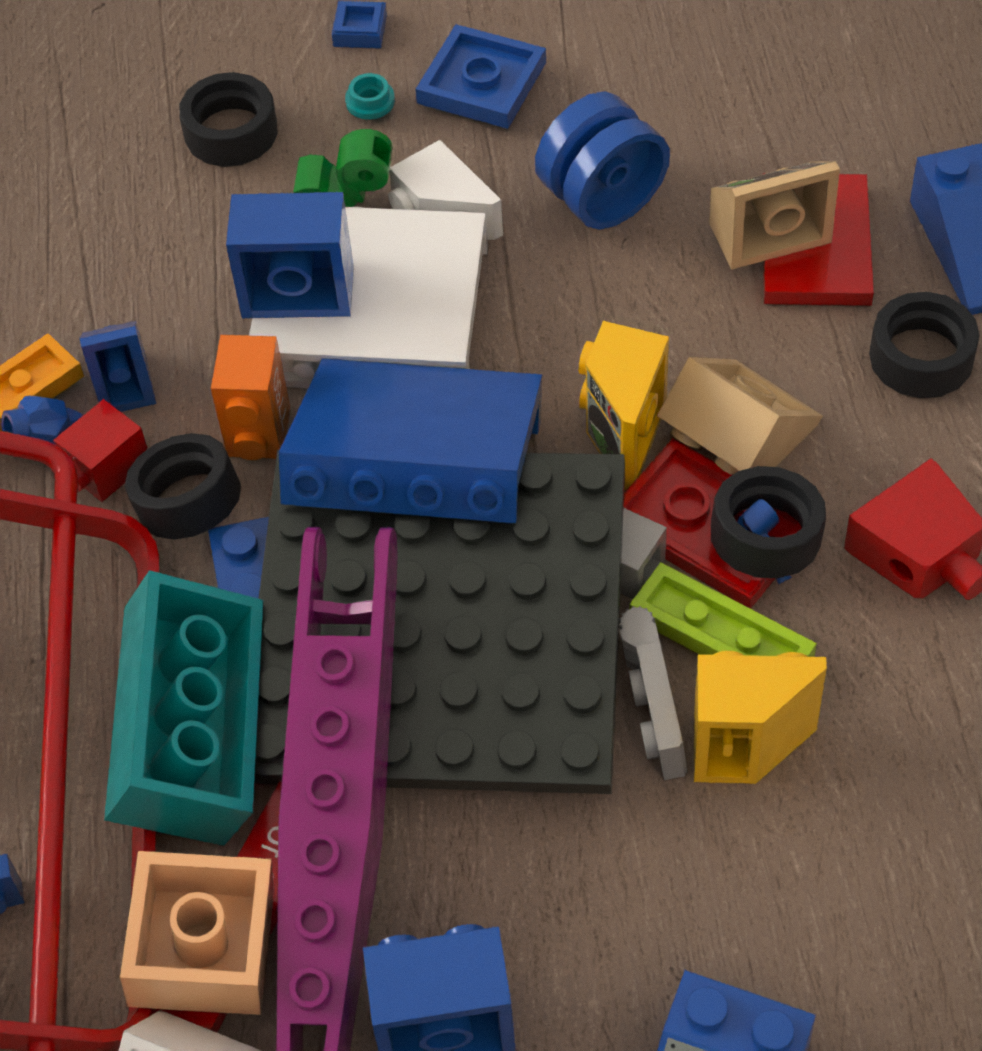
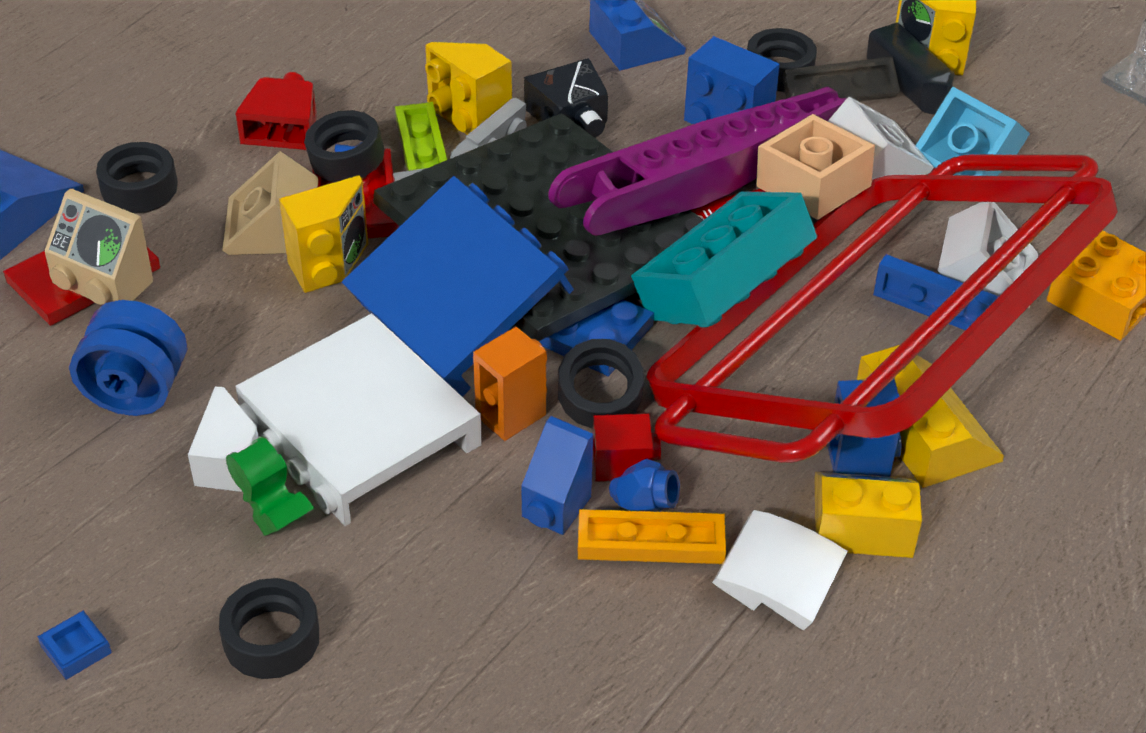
camera: 140 degrees left, 10 degrees down
(290, 254) = (402, 392): blue brick -> none
(369, 96) = (159, 556): teal plate -> none
(481, 76) = (76, 514): blue plate -> none
(644, 844) = (569, 90): none -> black torso

